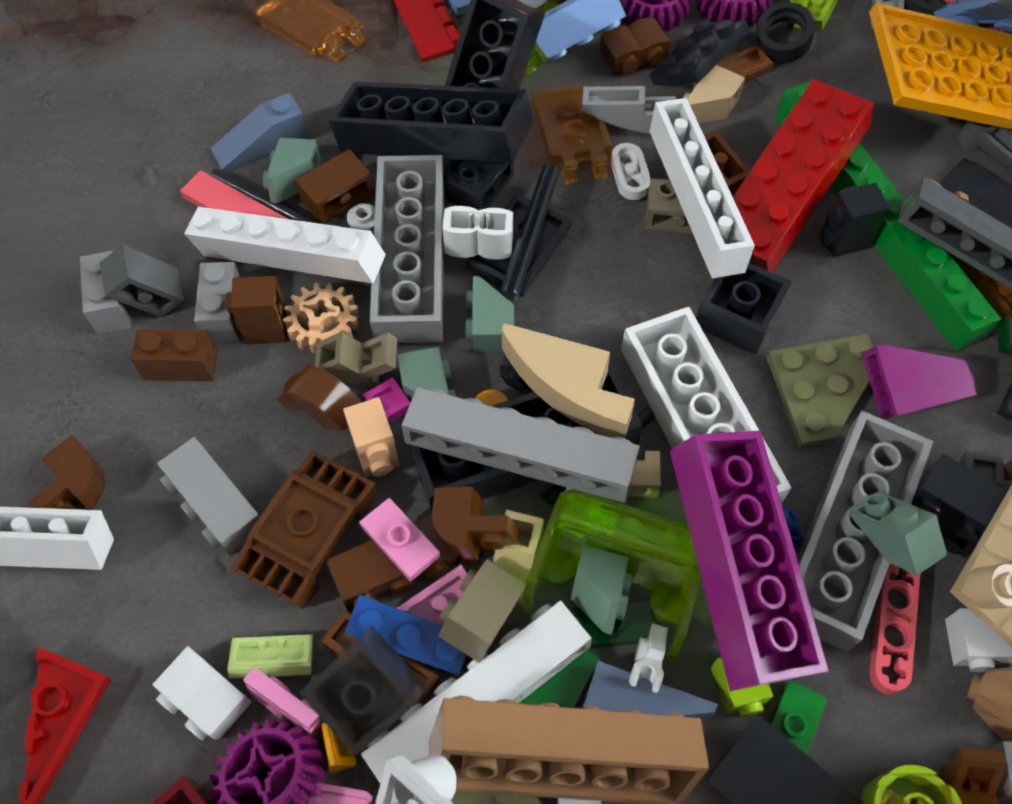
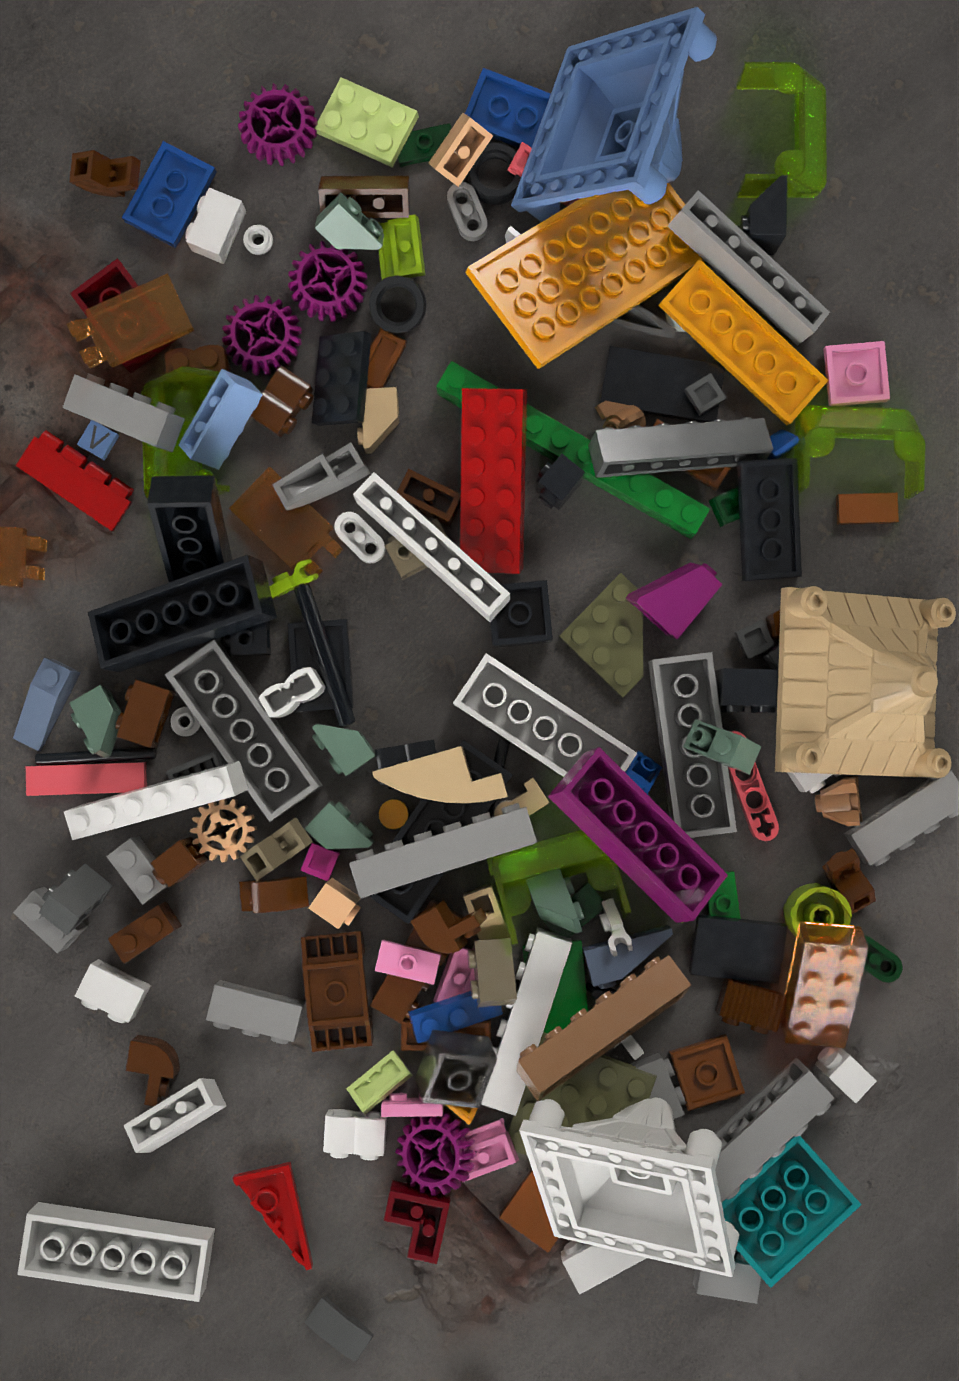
camera: 30 degrees left, 25 degrees up
(98, 388) = (112, 991): none -> white brick
(531, 161) = (284, 583): none -> lime plate

